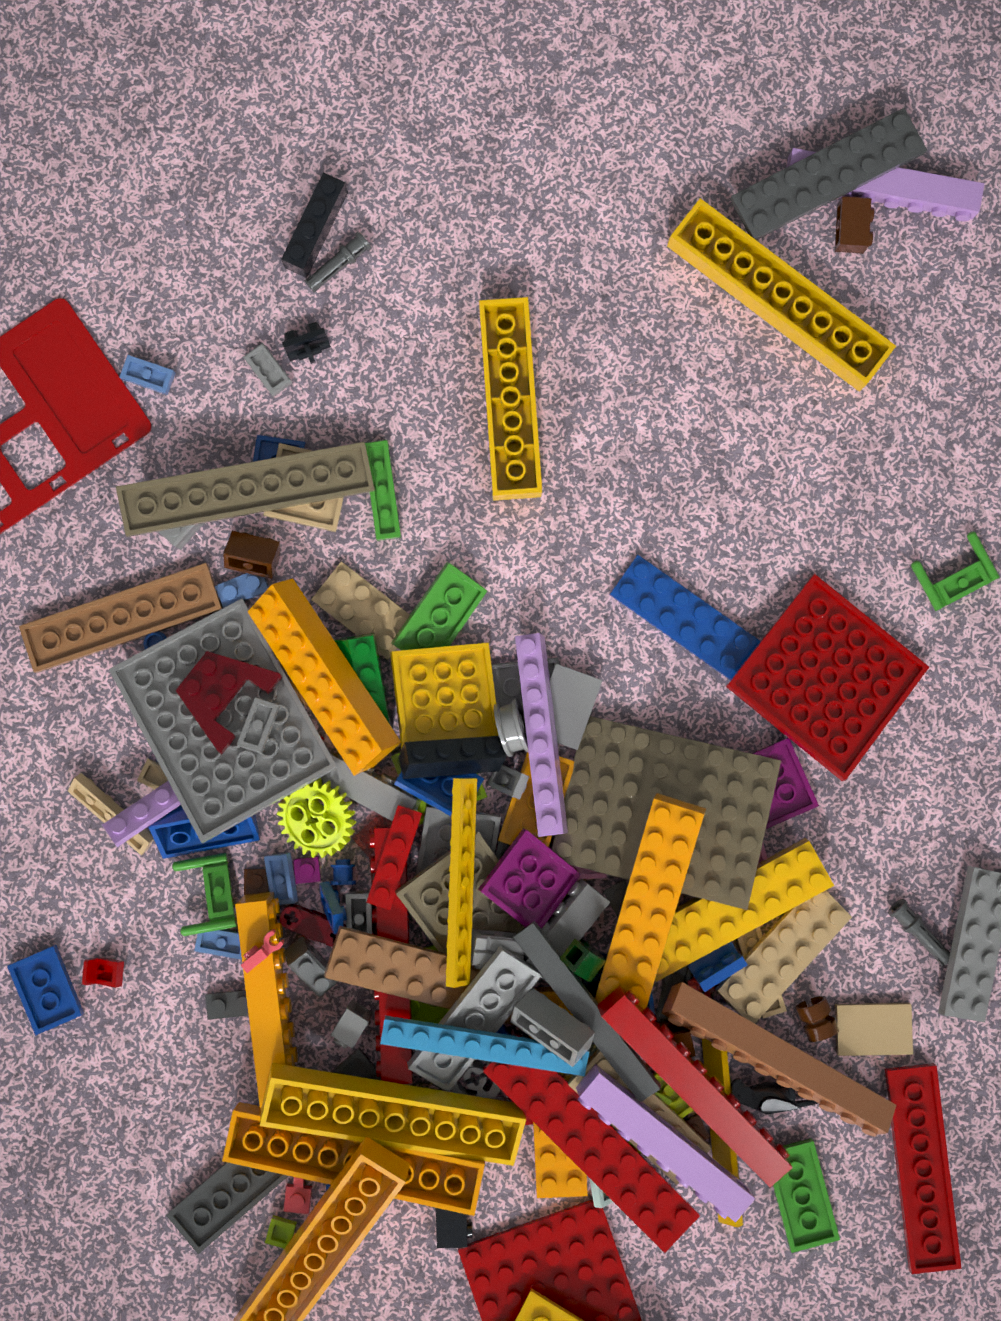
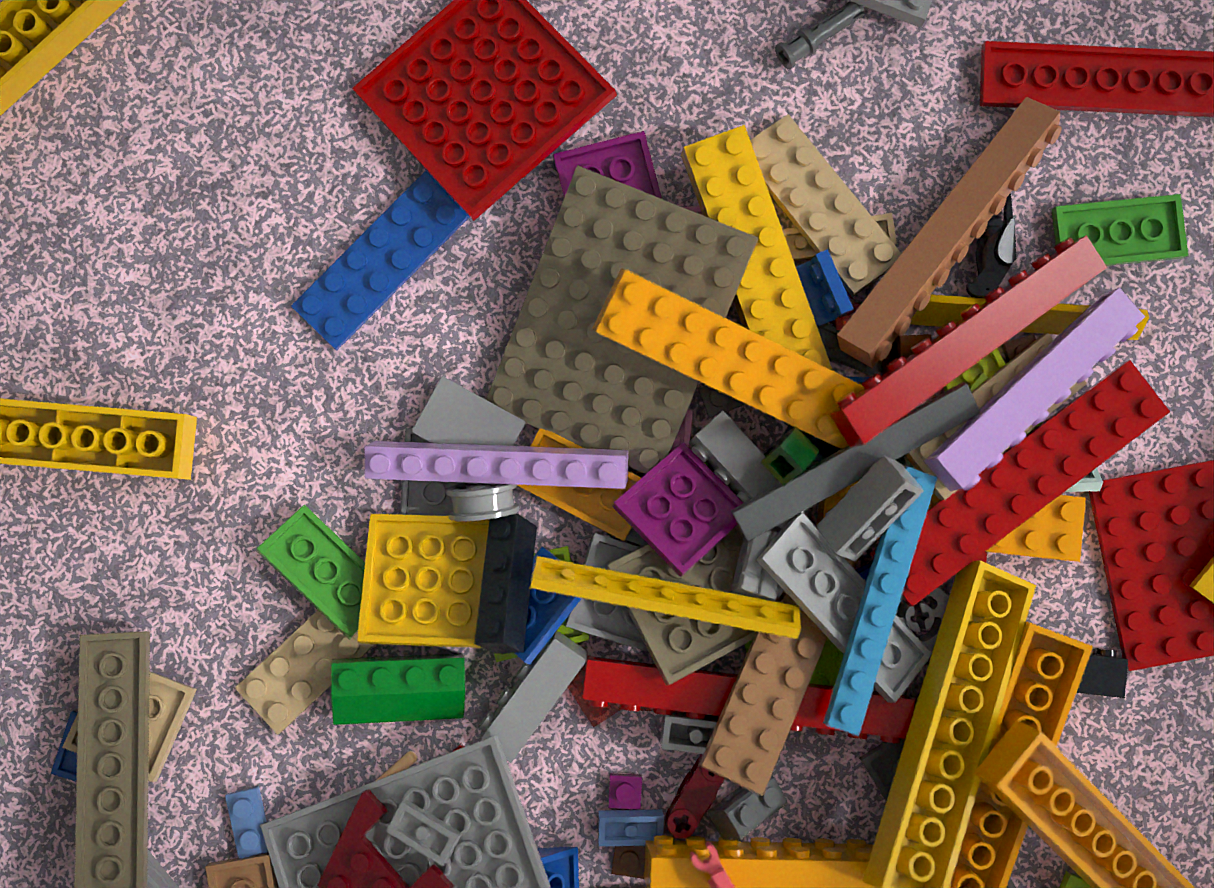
camera: 80 degrees left, 0 degrees up
(251, 554) = (204, 804): reddish brown brick -> none
(297, 1197) = (1036, 865): coral plate -> none
(323, 676) = (374, 735): light orange brick -> none
(326, 838) = (559, 770): neon yellow gear -> none
(330, 902) = (669, 768): blue plate -> none
(343, 872) = (634, 746): blue brick -> none
(351, 1024) = (829, 766): light grey brick -> none
(383, 498) = (158, 619): bright green plate -> none
(394, 857) = (623, 678): red plate -> none
(509, 781) = (551, 514): light grey plate -> none
(818, 1021) = (907, 176): reddish brown wheel -> none
(874, 1029) = (929, 110): tan tile -> none

